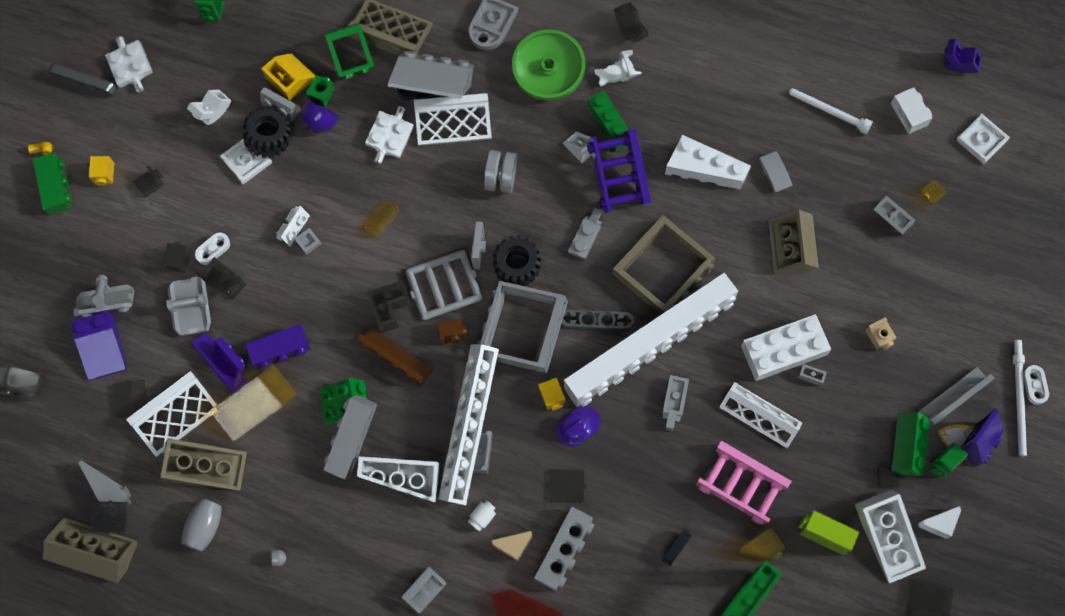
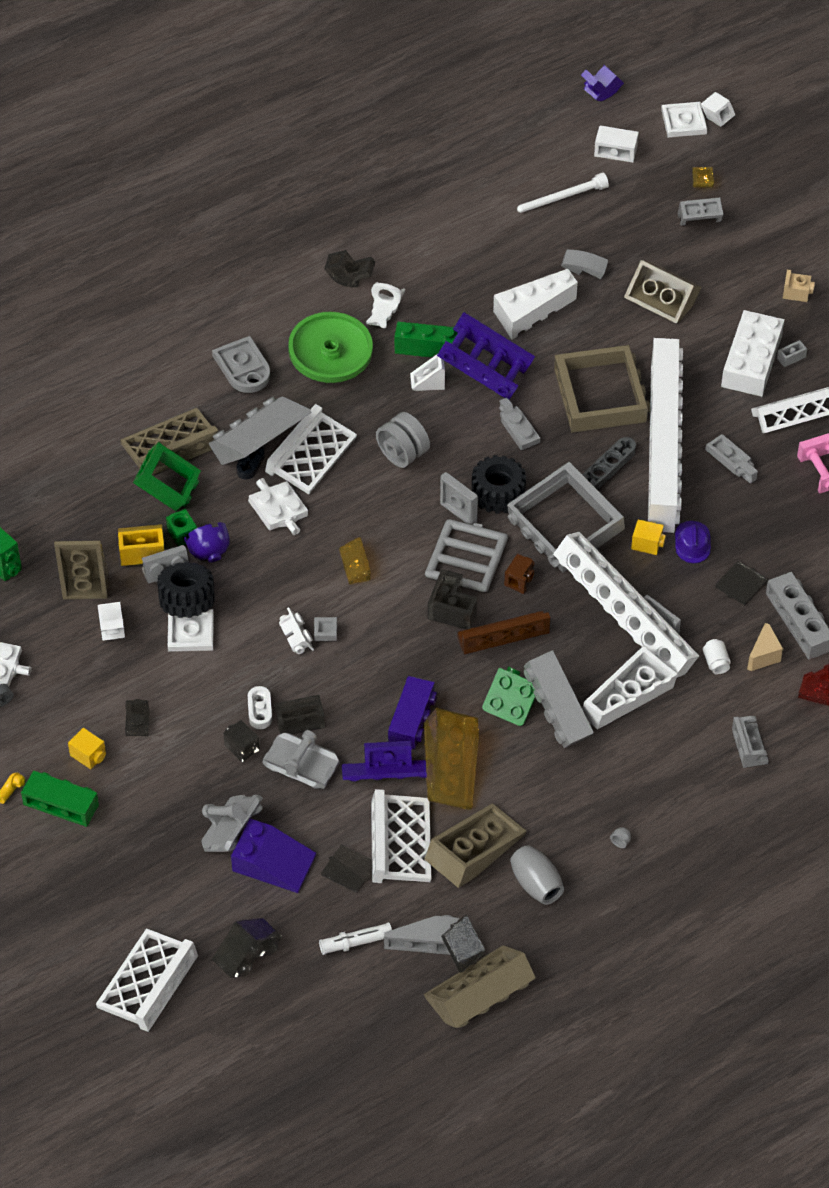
camera: 55 degrees left, 20 degrees down
(91, 456) = (347, 940): none -> white pin
(227, 60) = (82, 569): none -> dark tan slope
(1009, 155) = (718, 109): none -> white brick

